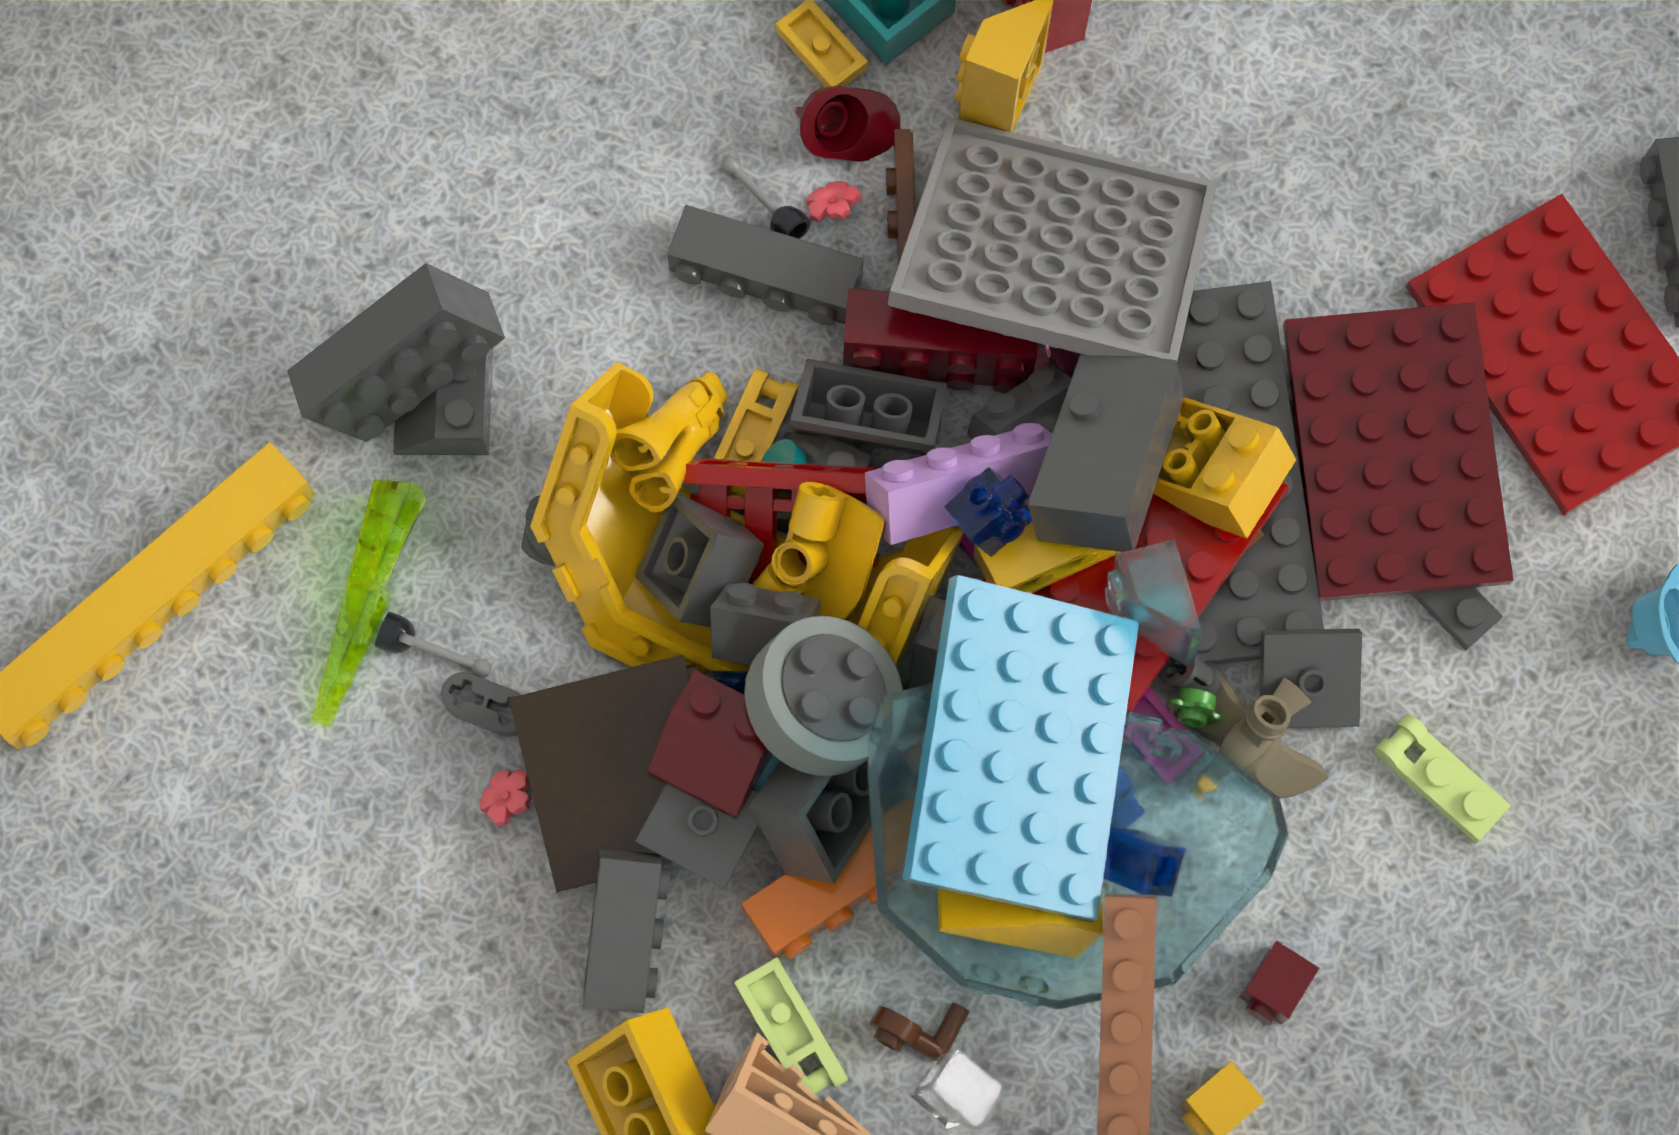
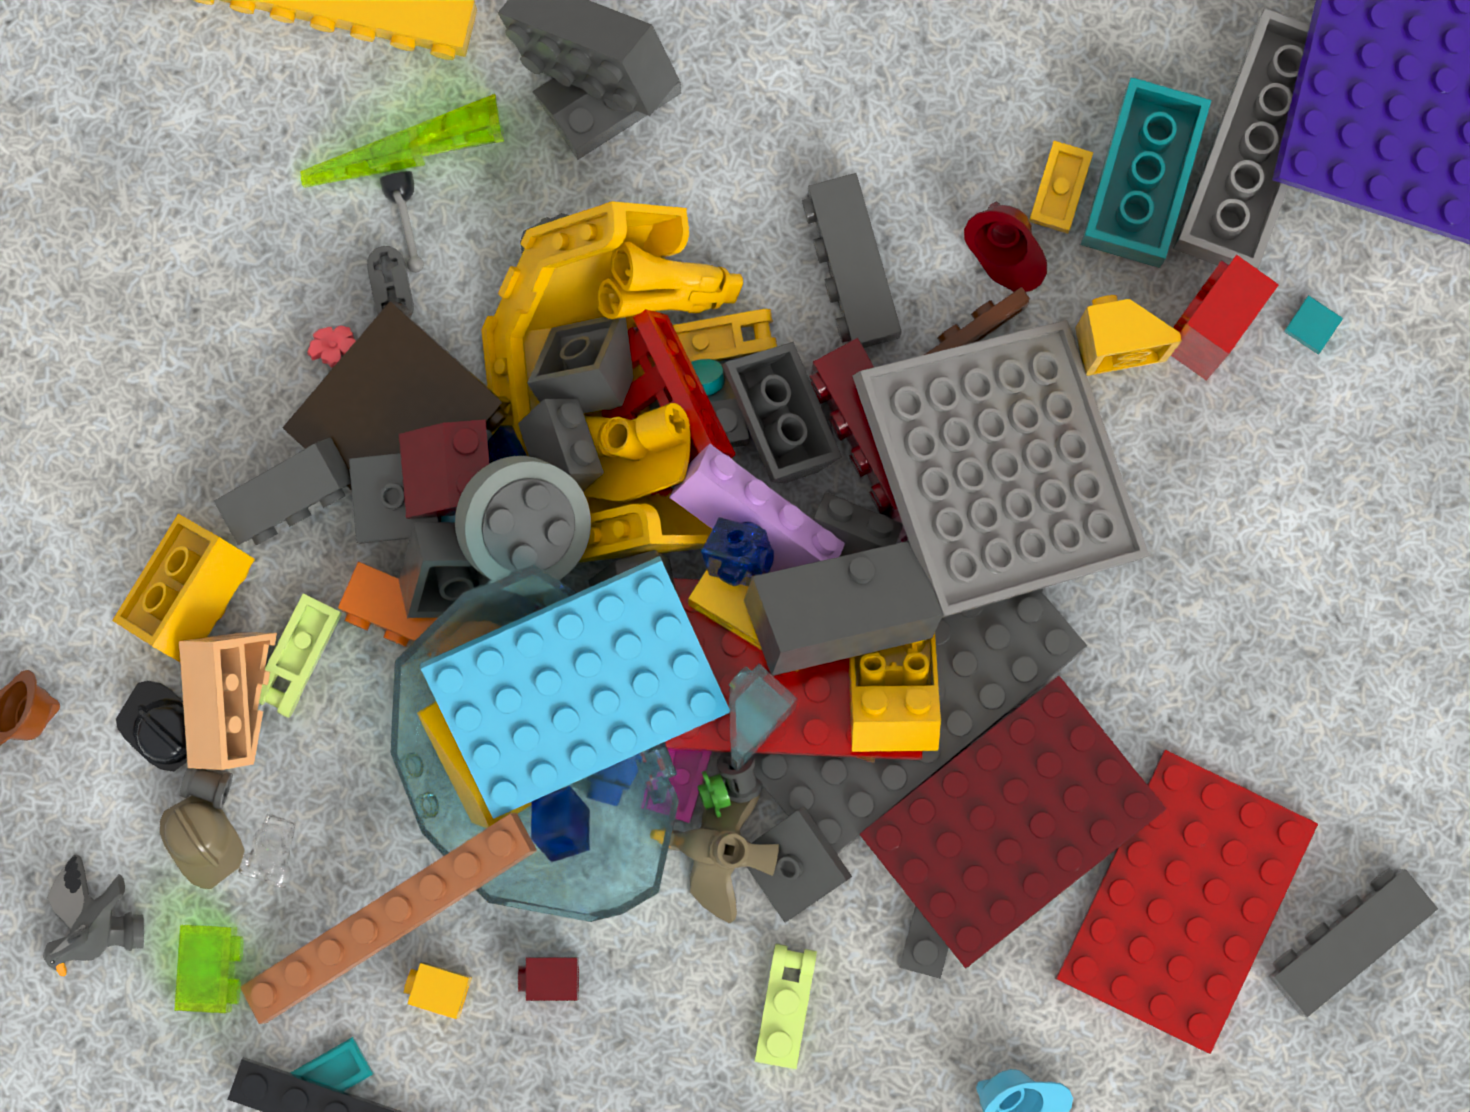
camera: 60 degrees right, 10 degrees up
(785, 219) = (900, 255): hinge -> none
(832, 201) = (940, 277): coral plant -> none
(897, 1030) = (343, 730): reddish brown plate -> none
(957, 1093) = (324, 800): clear brick -> none

